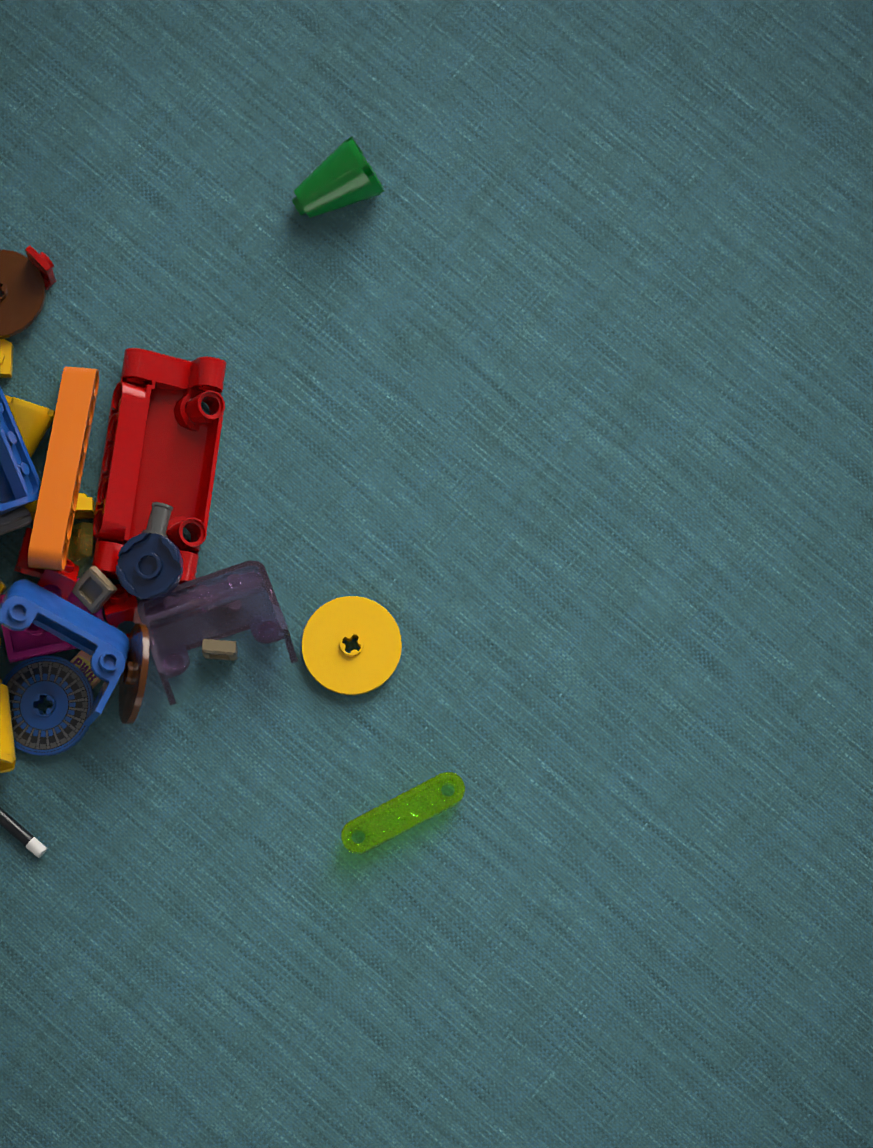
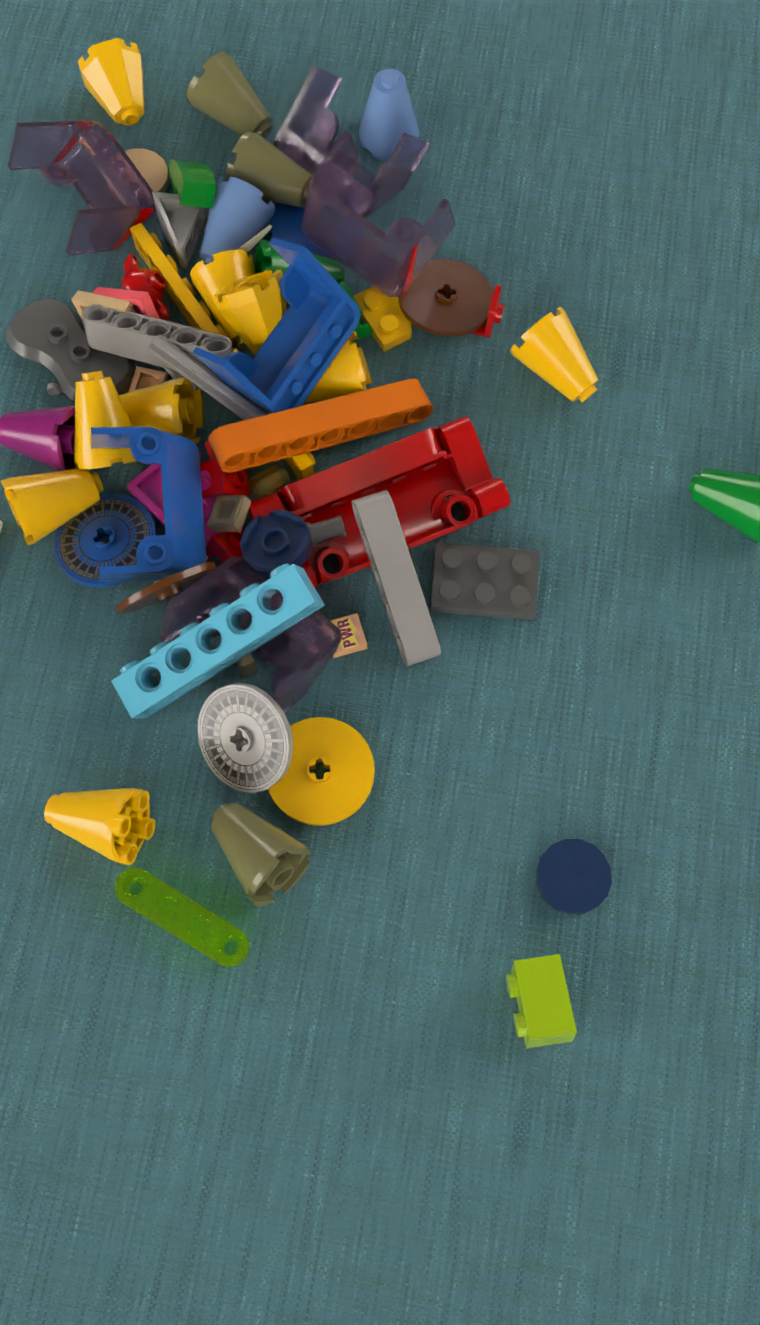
camera: 60 degrees right, 5 degrees down
(119, 240) = (558, 356): none -> yellow cone
(210, 745) = (135, 681): none -> medium azure brick
(236, 490) = (396, 578): none -> light grey beam
(251, 551) = (352, 635): none -> tile
(275, 423) = (485, 581): none -> dark grey plate
(291, 830) = (104, 820): none -> yellow cone
(295, 661) = (261, 720): none -> piece
(388, 726) = (259, 852): none -> olive cone
(550, 506) = (573, 876): none -> dark blue tile
(625, 585) = (542, 1001): none -> lime brick

